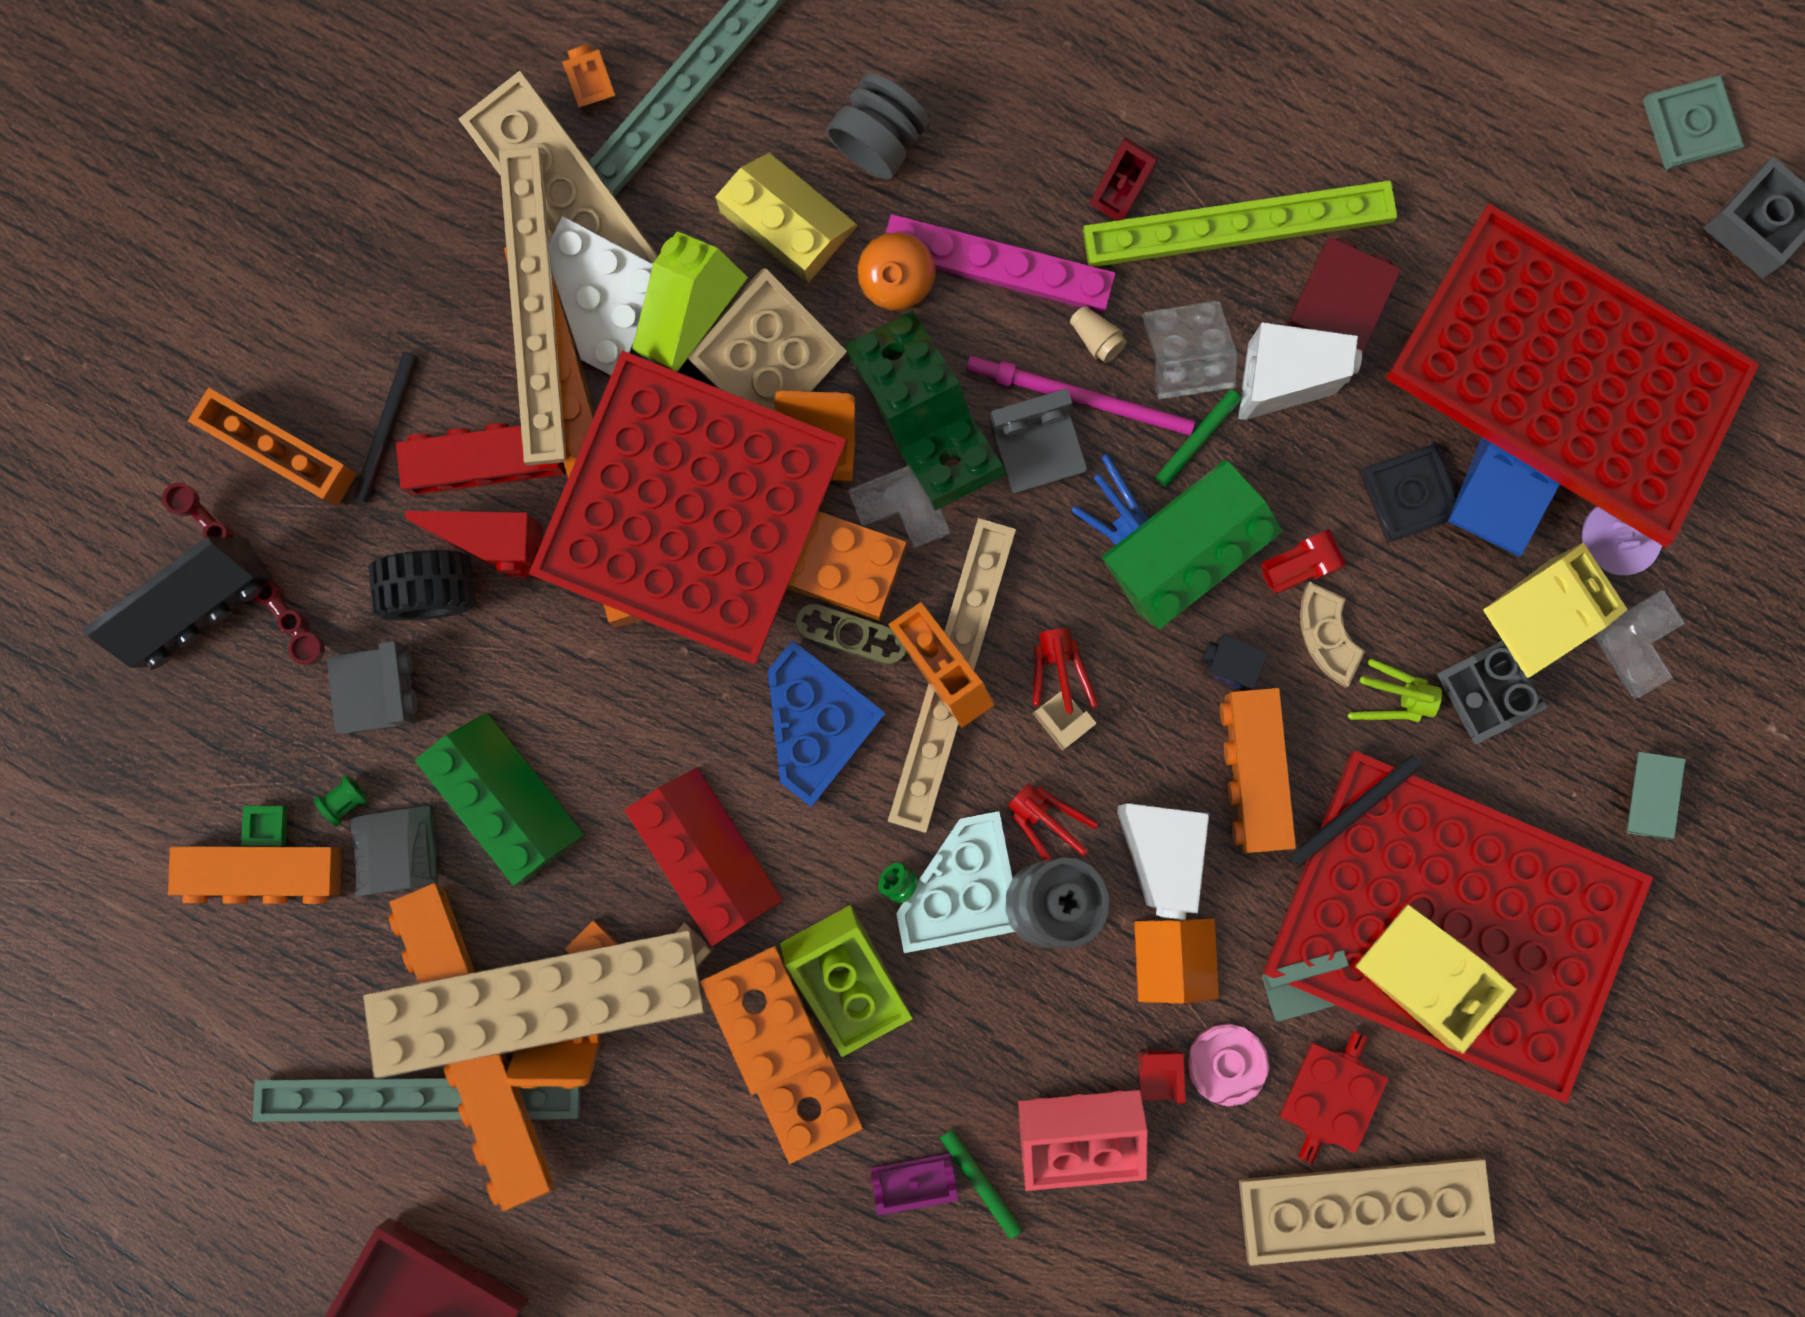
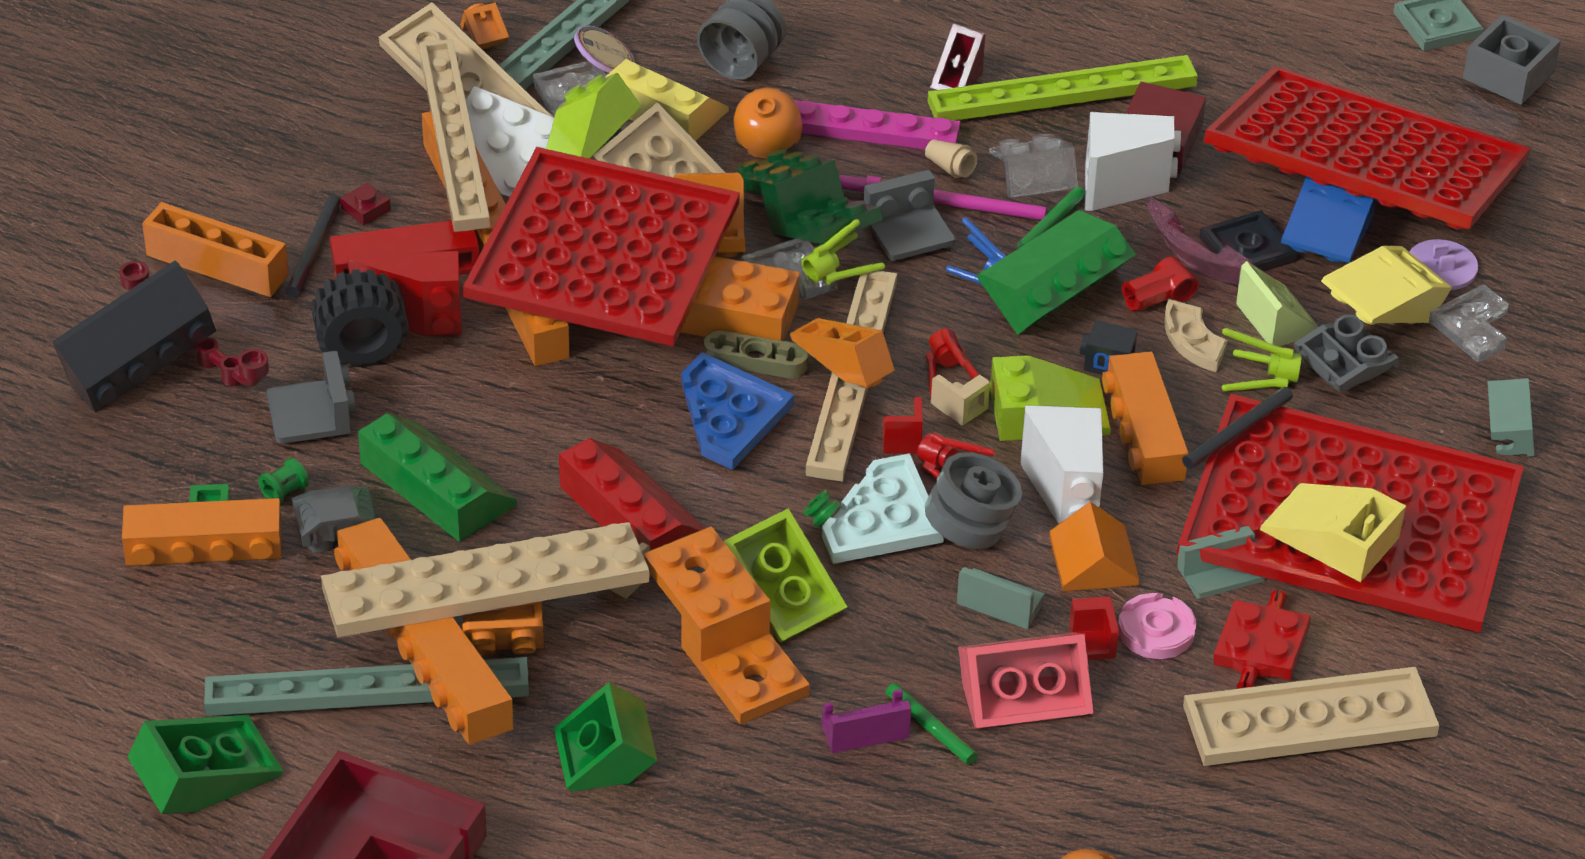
camera: 10 degrees left, 40 degrees down
(255, 1191) = (201, 761): none -> green slope
(443, 362) = (365, 203): none -> dark red plate
(651, 1197) = (605, 740): none -> green slope
(671, 182) = (555, 83): none -> clear plate
(720, 130) = (601, 48): none -> piece
(933, 524) = (824, 261): none -> lime plant
(996, 767) = (903, 433): none -> red panel
(1071, 1015) = (998, 597): none -> sand green panel
(1158, 734) = (1036, 382): none -> lime slope
(1323, 470) = (1222, 267): none -> clear pink slope
(1426, 606) = (1272, 307): none -> yellowish green slope

